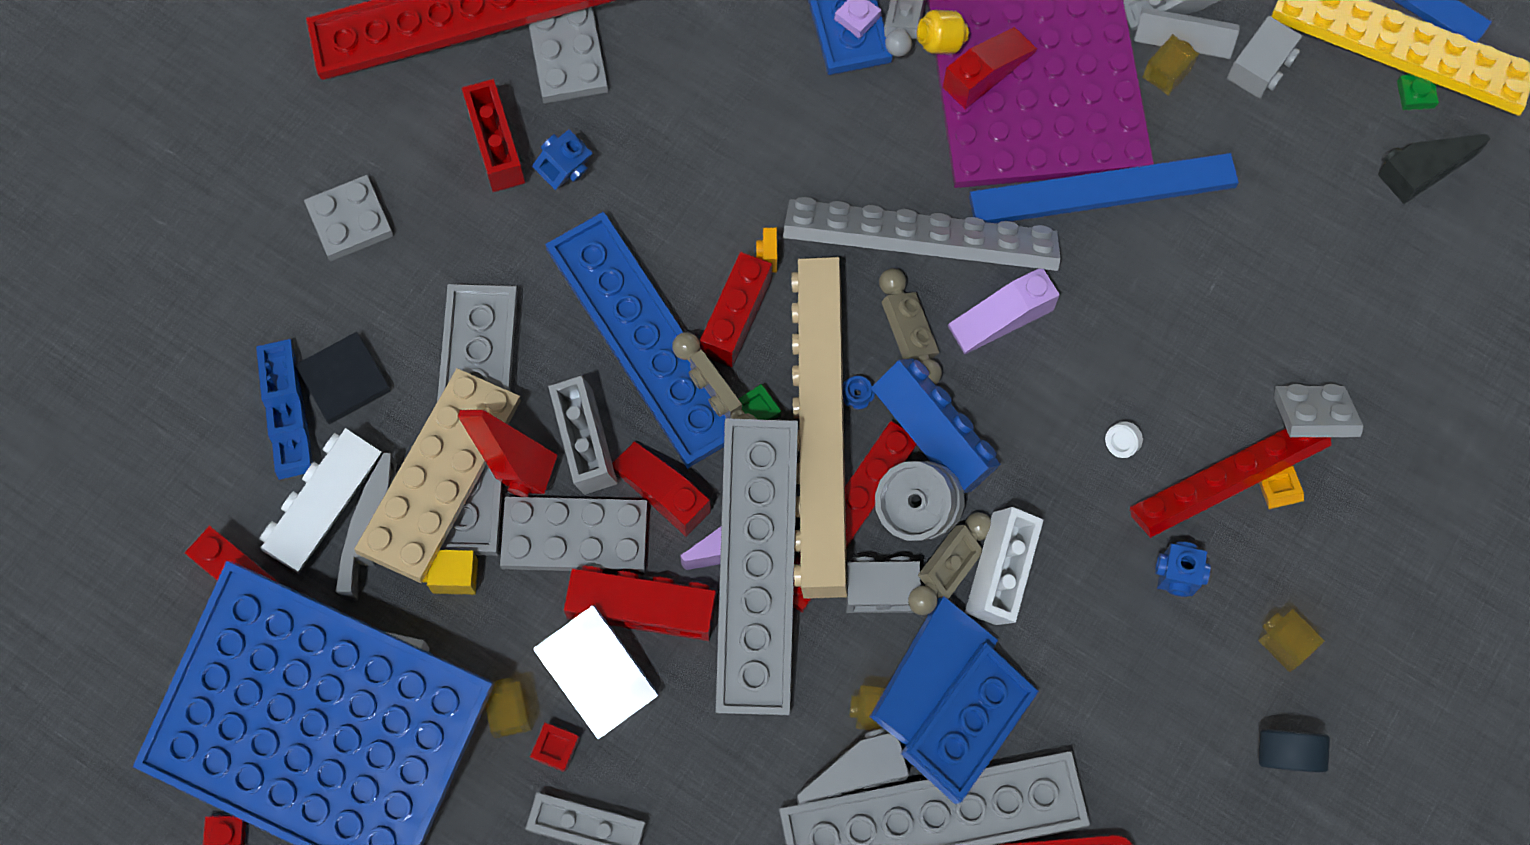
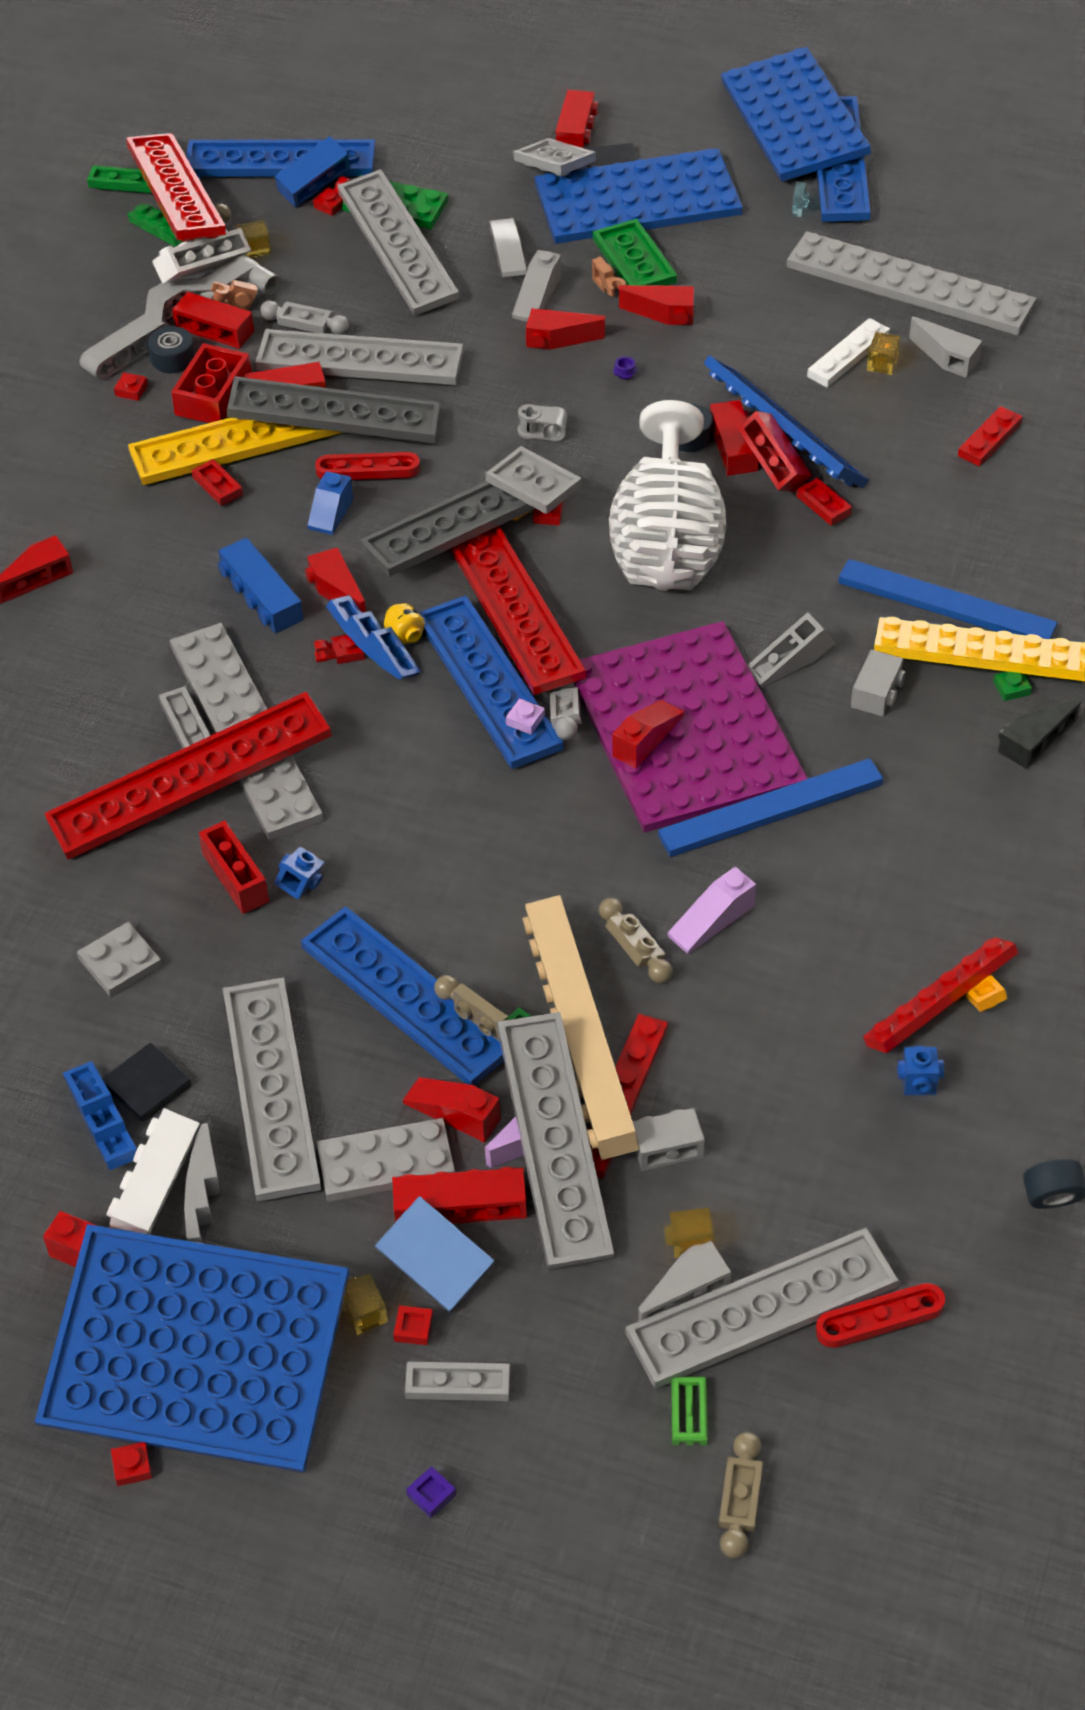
camera: 10 degrees left, 20 degrees down
(433, 480) = (254, 1131): tan plate -> none
(453, 573) = (284, 1208): yellow brick -> none
(509, 453) = (314, 1097): red slope -> none
(582, 435) = (374, 1076): light grey brick -> none
(736, 309) = (482, 951): red brick -> none
(767, 248) = (496, 906): light orange plate -> none
(861, 384) = (605, 992): blue plate -> none
(915, 481) = (663, 1056): light grey wheel -> none
(922, 234) = (636, 864): light grey plate -> none
(929, 669) = (732, 1194): blue tile -> none
(934, 423) = (678, 1005): blue brick -> none
(942, 32) = (601, 712): yellow head -> none
(950, 563) = (721, 1107): dark tan plate -> none
(970, 723) = (772, 1221): blue tile -> none
(1004, 566) = (767, 1098): white brick -> none
(1124, 439) = (842, 985): white tile -> none
(1170, 64) = (800, 703): clear yellow brick -> none
(1202, 34) = (806, 677): light grey tile -> none
(1290, 639) = (1027, 1104): clear yellow brick -> none
(1318, 411) = (998, 928): light grey plate -> none

